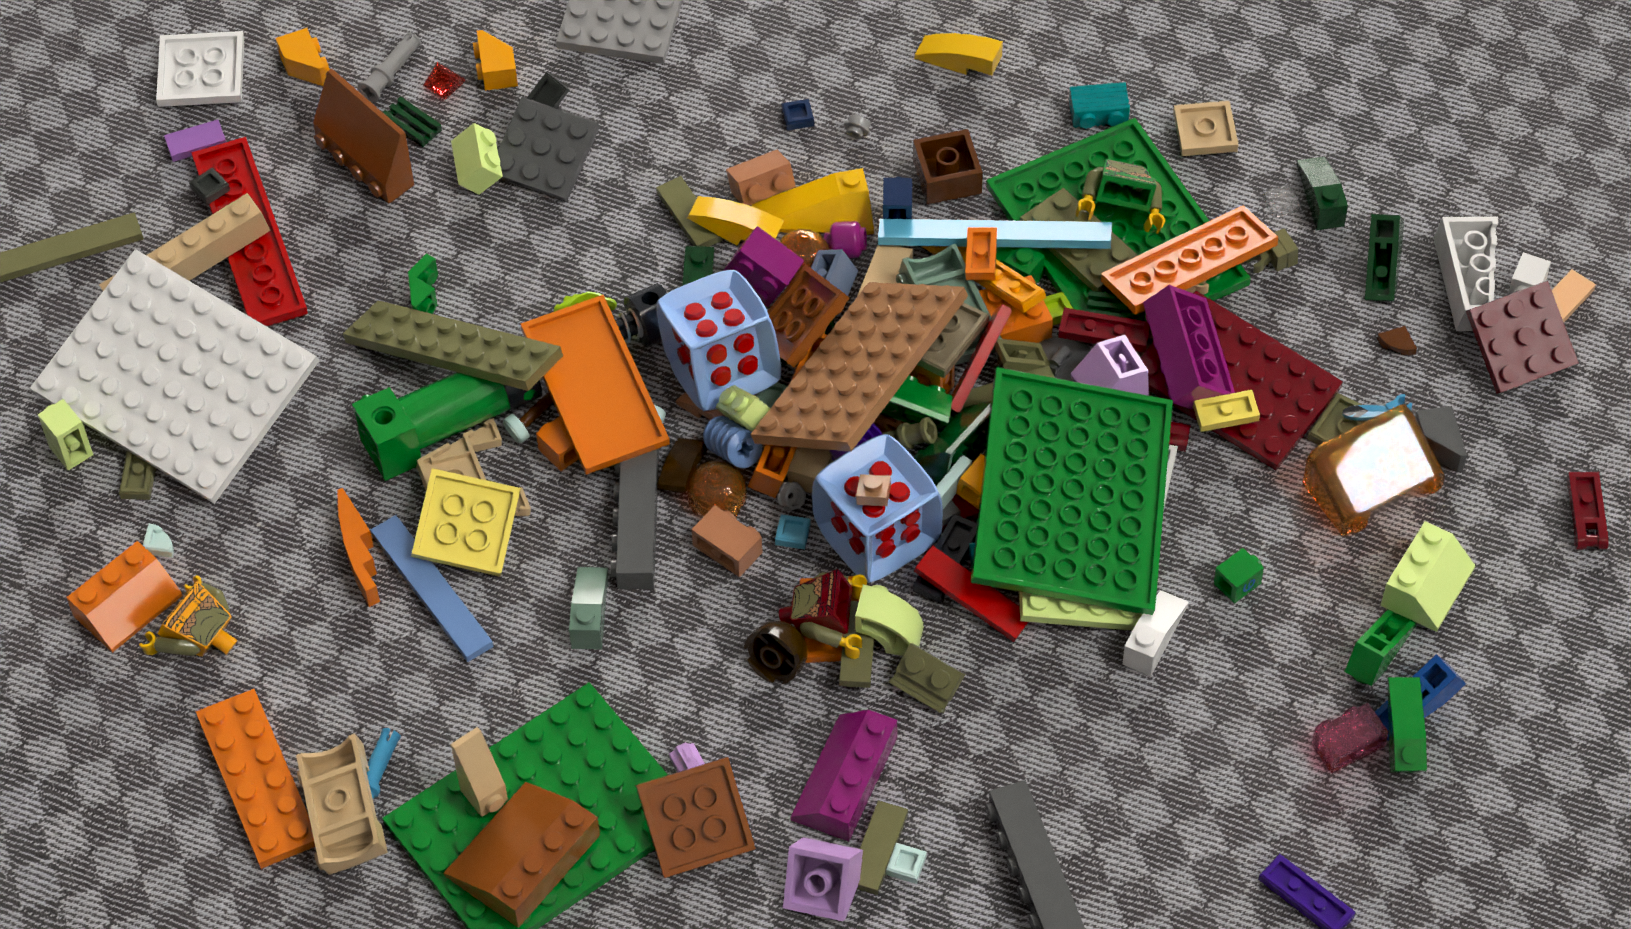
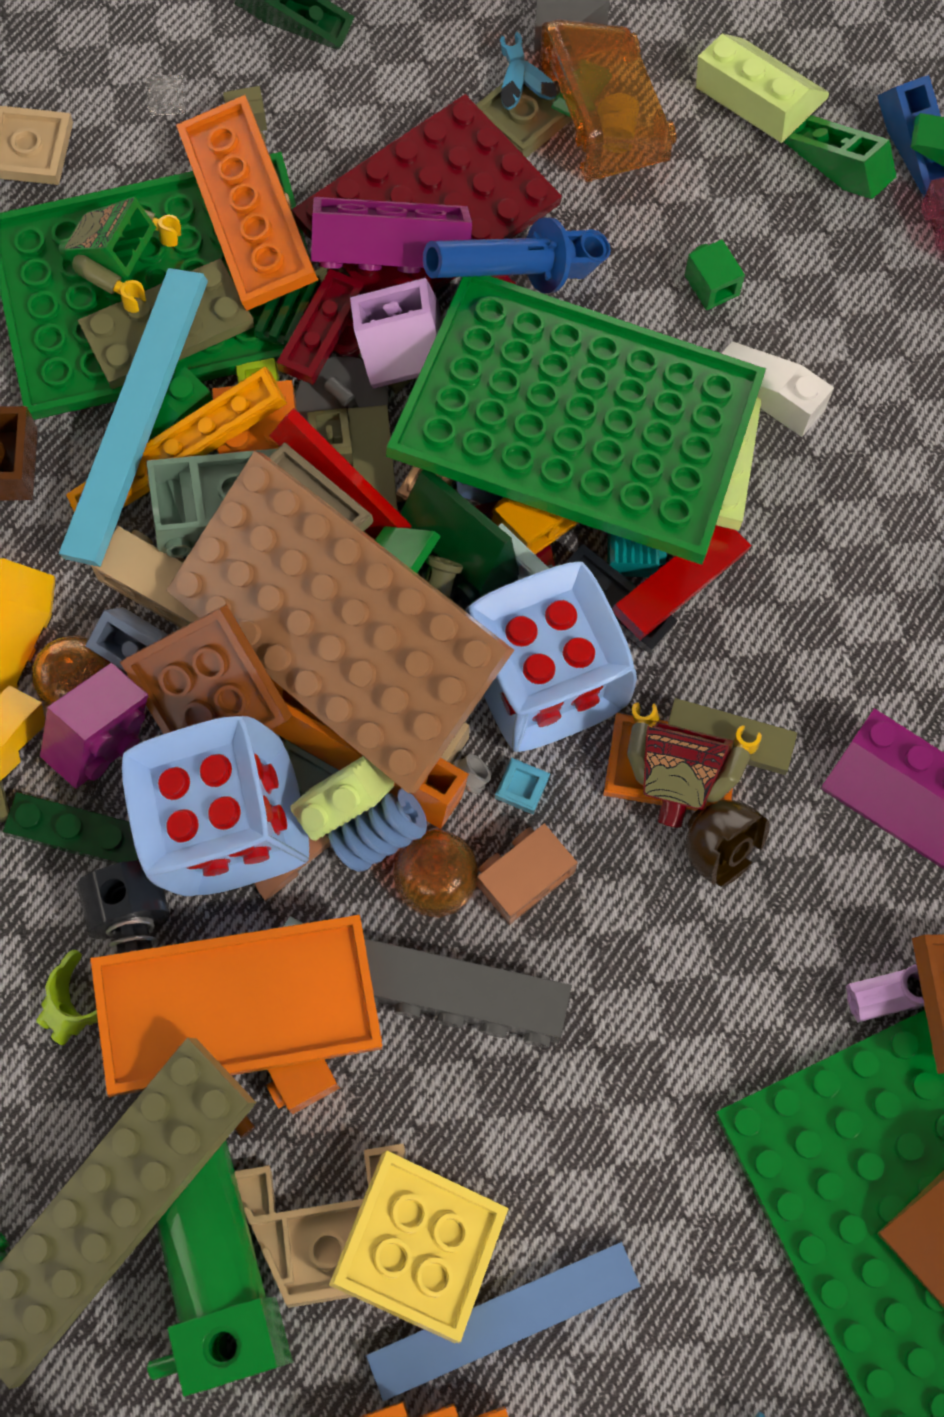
camera: 80 degrees left, 15 degrees up
(478, 773) = (894, 1301): tan slope -> none
(516, 428) = (258, 1140): light aqua tile -> none
(588, 608) = (588, 1087): sand green slope -> none
(681, 464) = (384, 910): dark brown slope -> none
(848, 237) = (66, 610): magenta head -> none
(873, 490) = (565, 641): medium nougat plate -> none
(888, 619) = (709, 689): yellowish green brick -> none
(897, 198) = (39, 527): dark blue brick -> none
(927, 678) = (796, 663): olive plate -> none
(981, 253) = (175, 431): orange plate -> none
(1206, 452) = (546, 255): none -> blue piece
(1226, 410) = (488, 209): light yellow plate -> none
(1323, 193) = (170, 44): dark green slope -> none
(1398, 340) = (412, 29): reddish brown tile -> none

